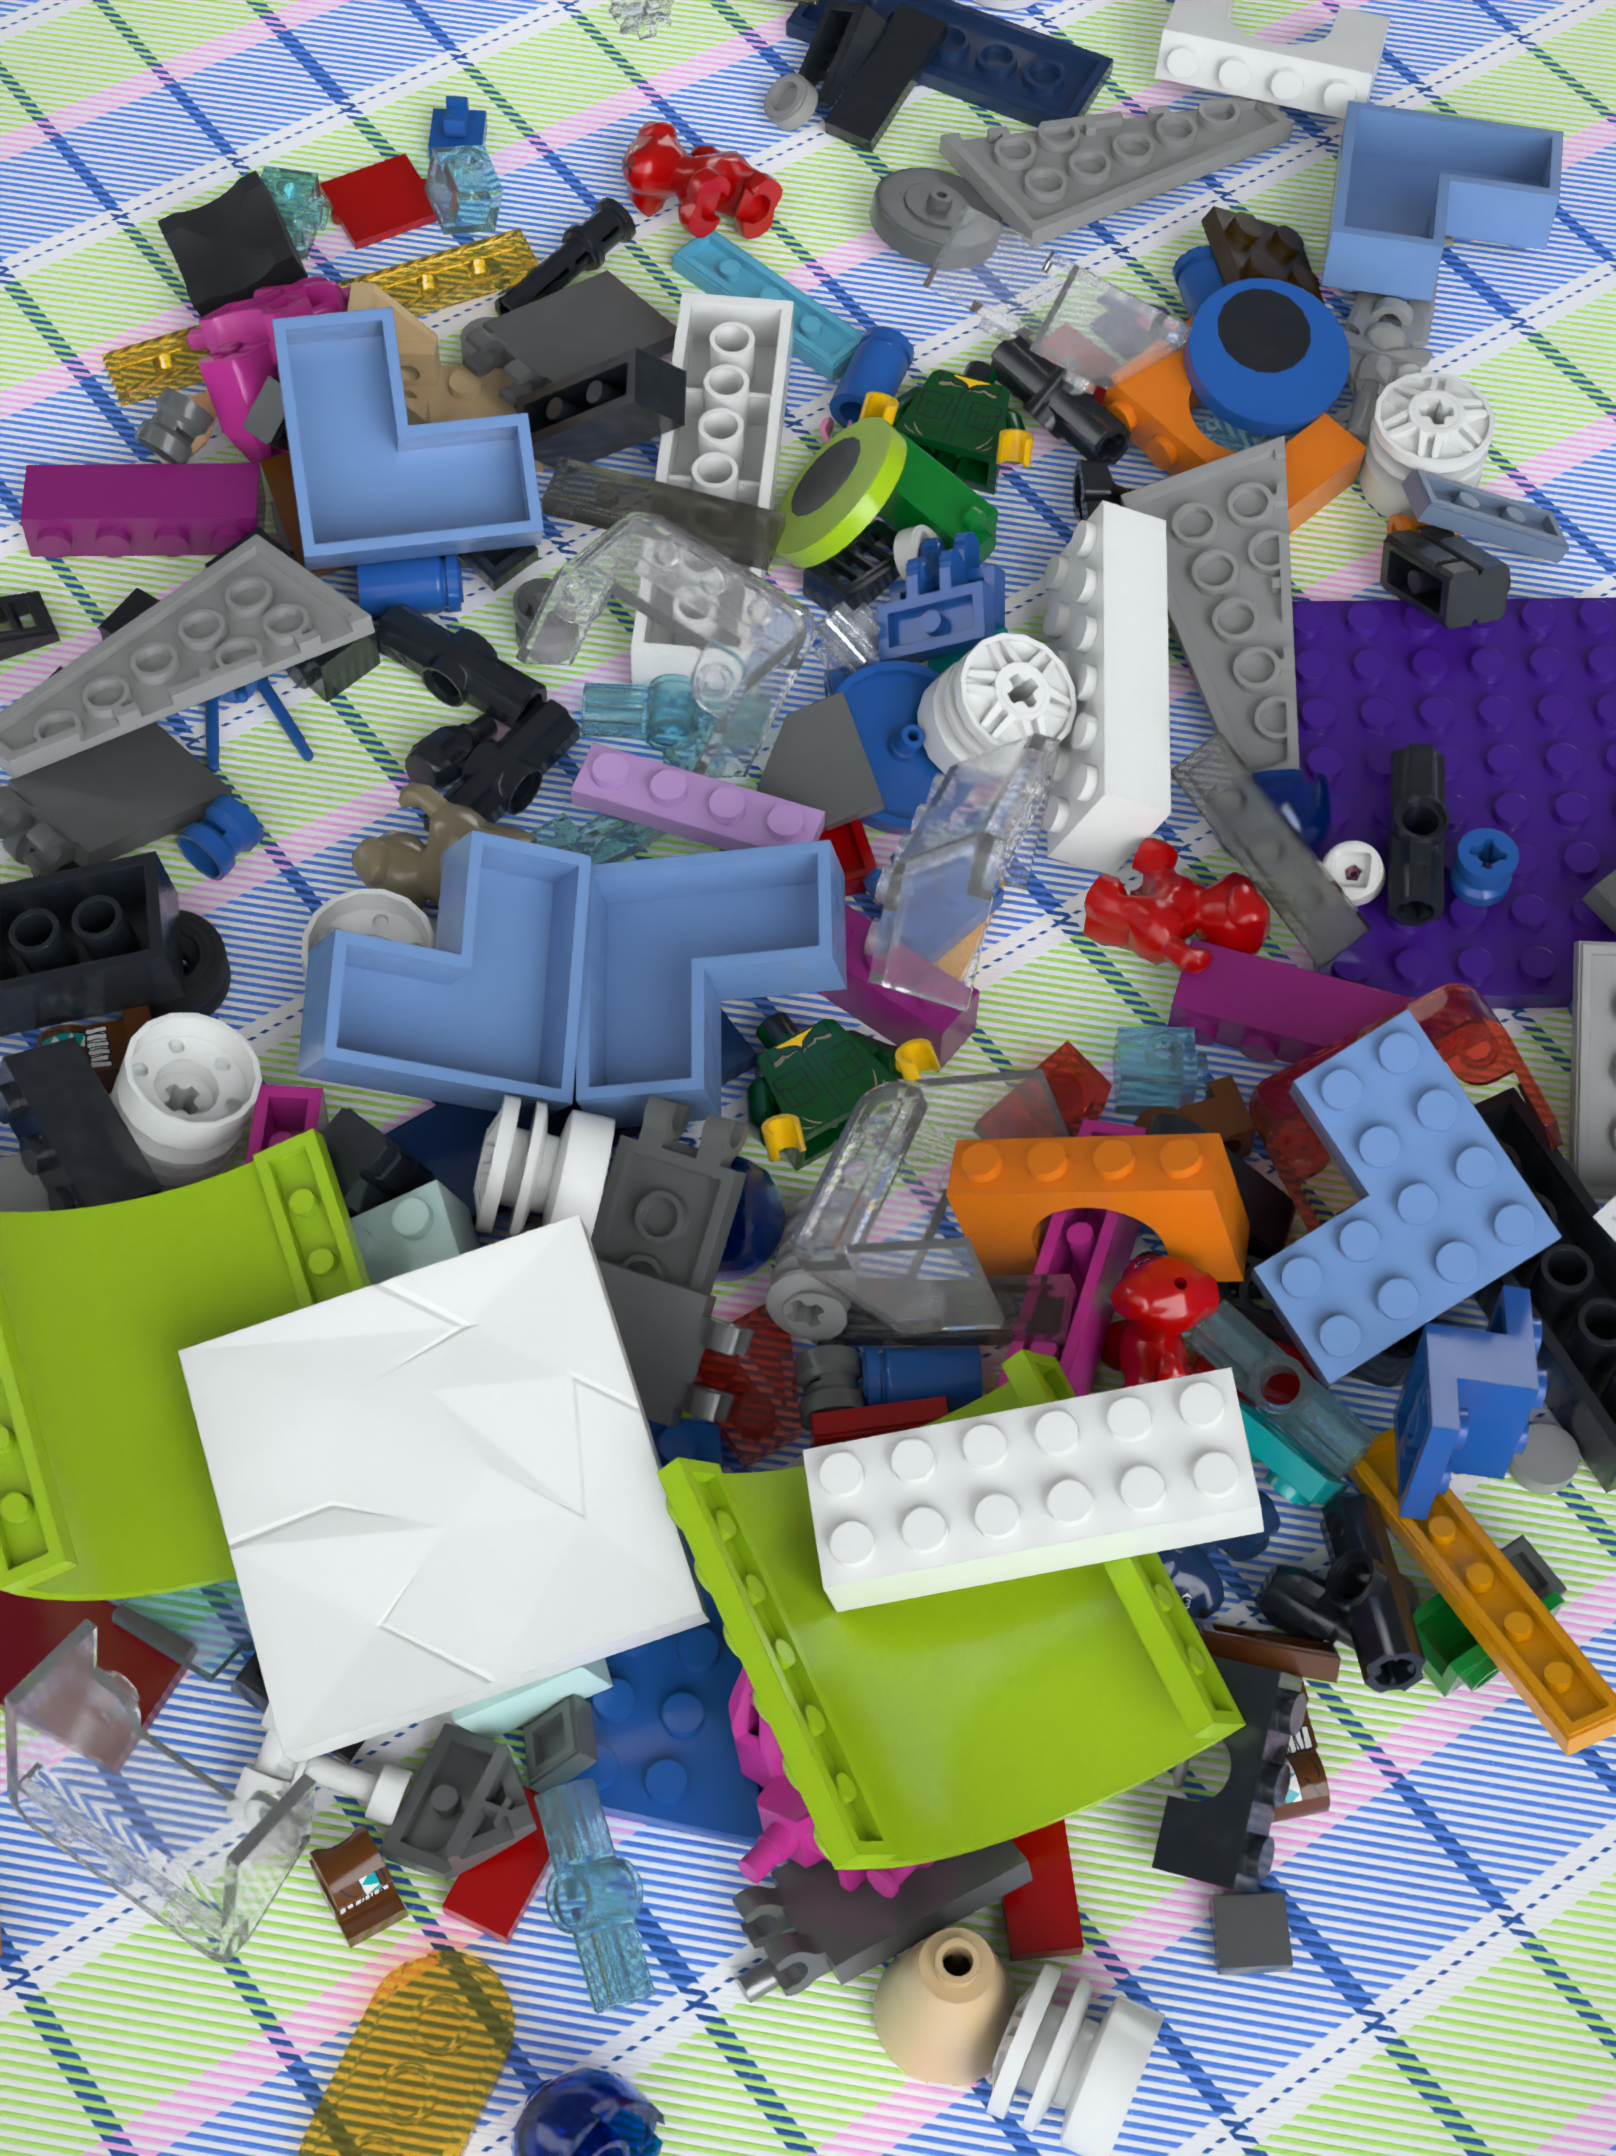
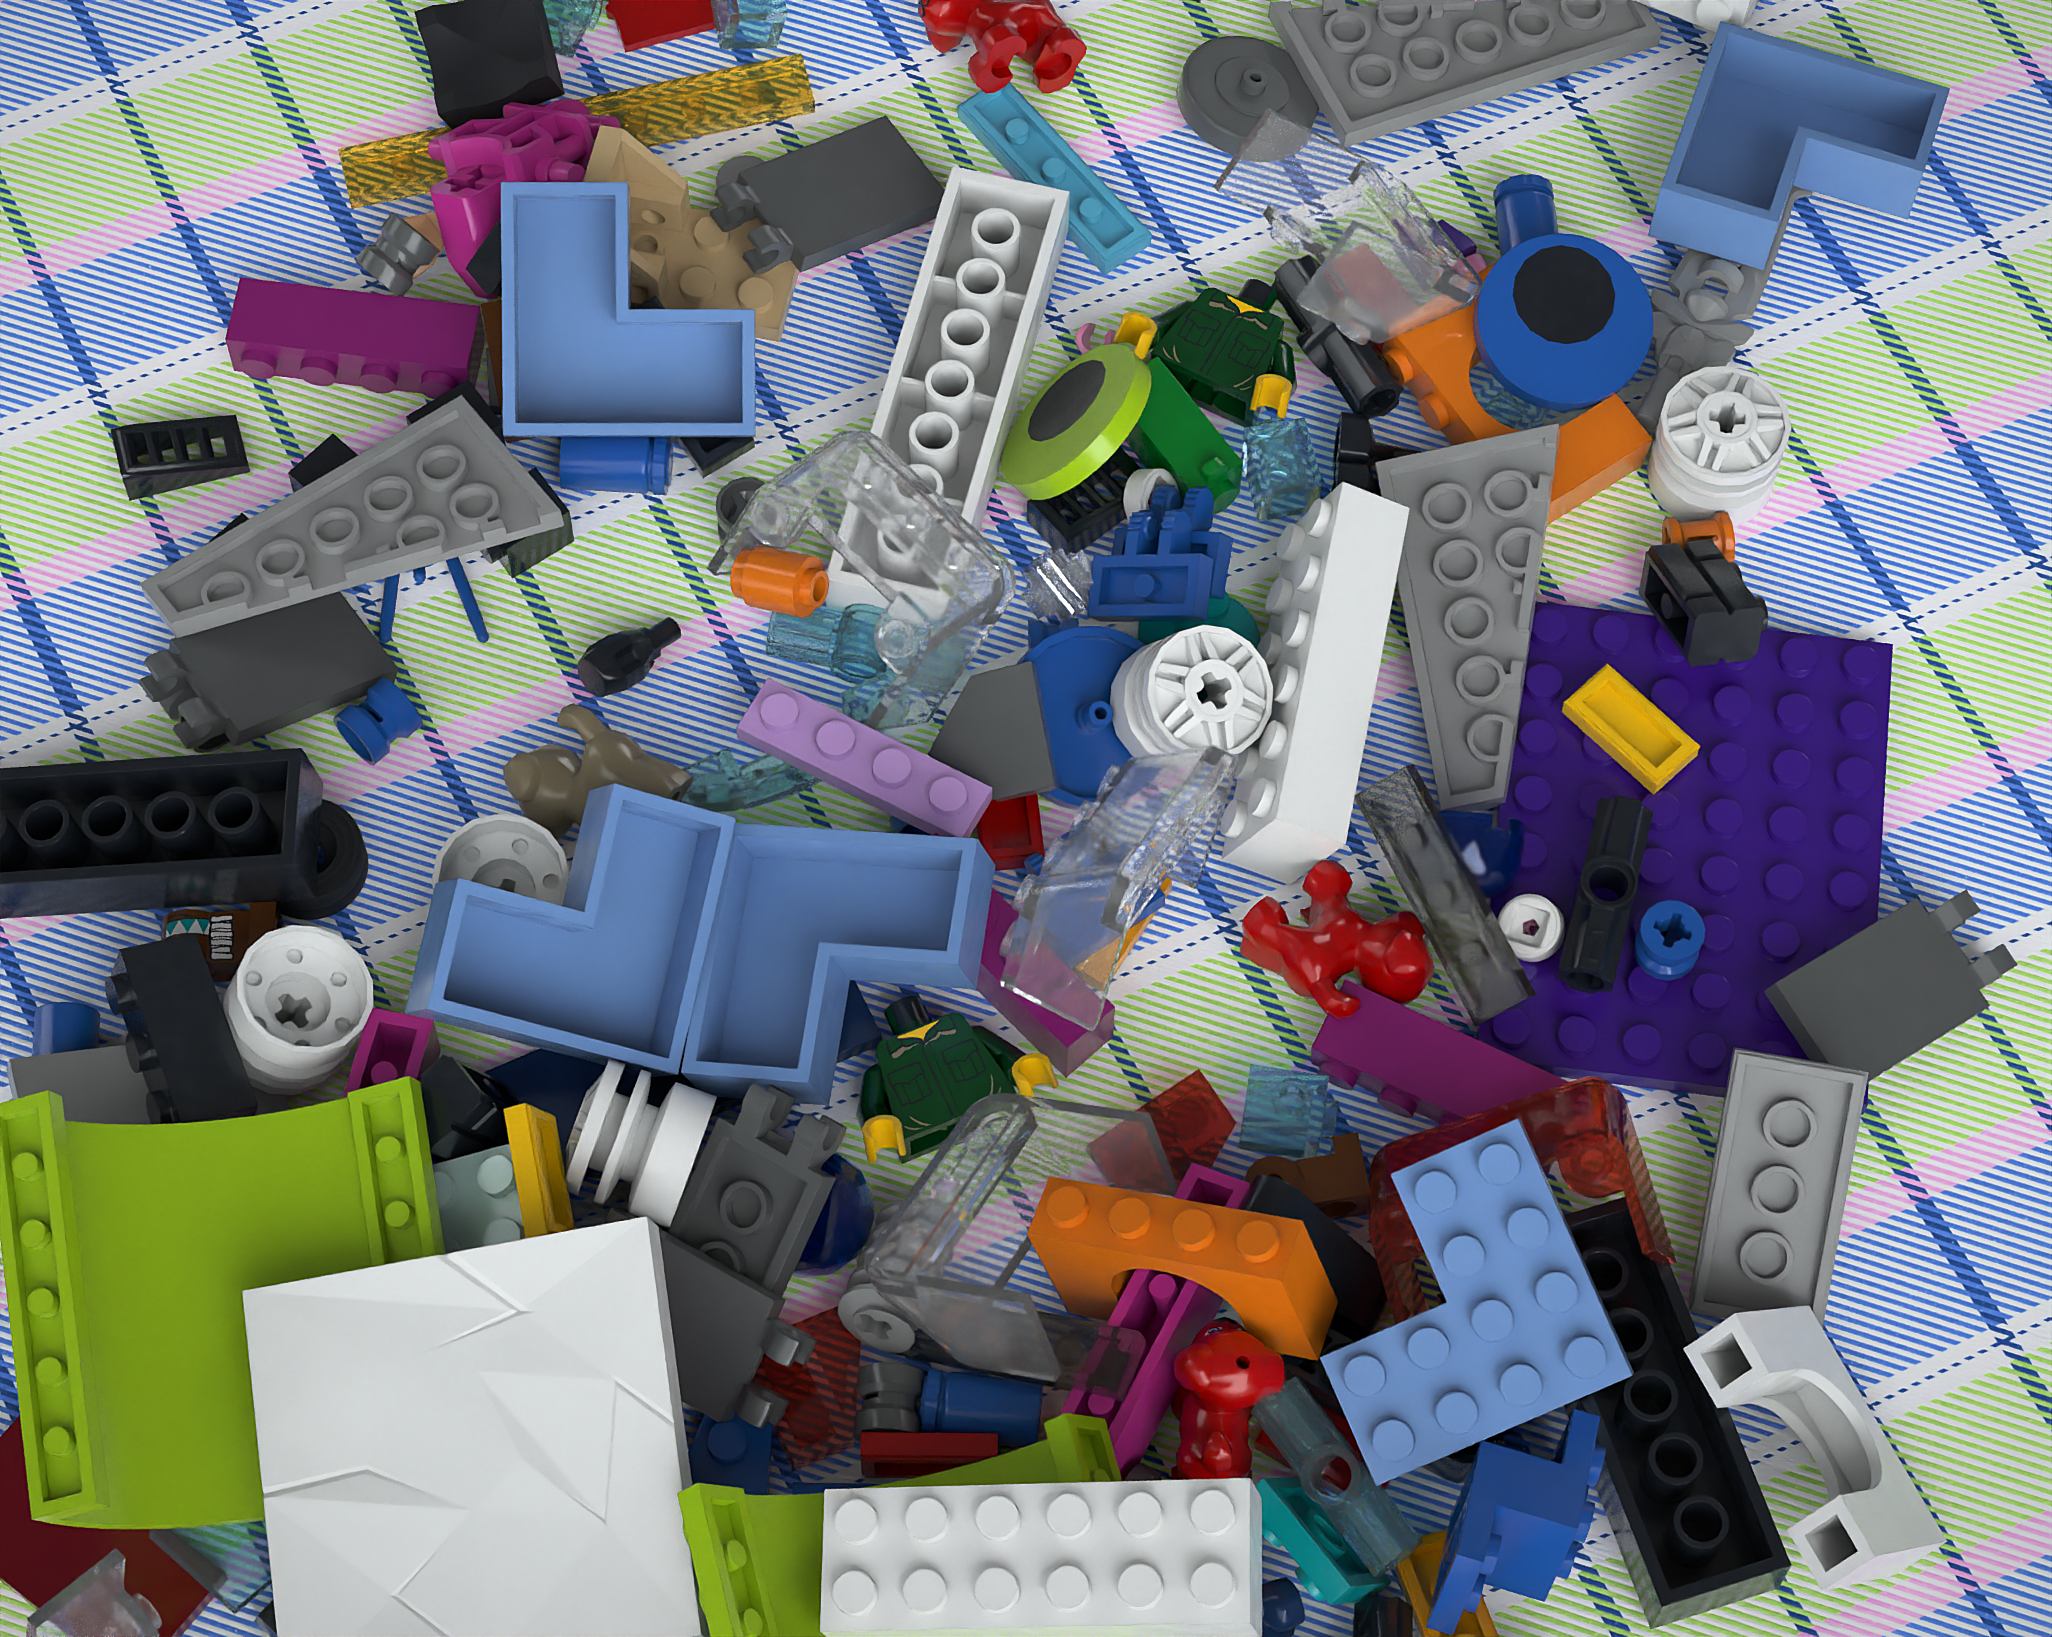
camera: 10 degrees right, 5 degrees up
(451, 1197) = (538, 1171): none -> yellow tile
(458, 666) = (653, 562): black piece -> none
(509, 771) = (682, 688): black piece -> none
(581, 249) = (862, 88): black pin -> none
(587, 659) = (779, 580): none -> orange brick
(604, 496) = (927, 442): clear smoke tile -> none
(605, 408) = (841, 298): black brick -> none
(875, 366) = (1144, 277): blue piece -> none
(1032, 515) = (1280, 468): none -> clear light blue brick
(1258, 250) = (1592, 196): dark brown plate -> none
(1402, 693) = (1630, 728): none -> yellow tile
(1485, 516) = (1763, 536): sand blue tile -> none
(1547, 1461) = (1596, 1584): light grey tile -> none

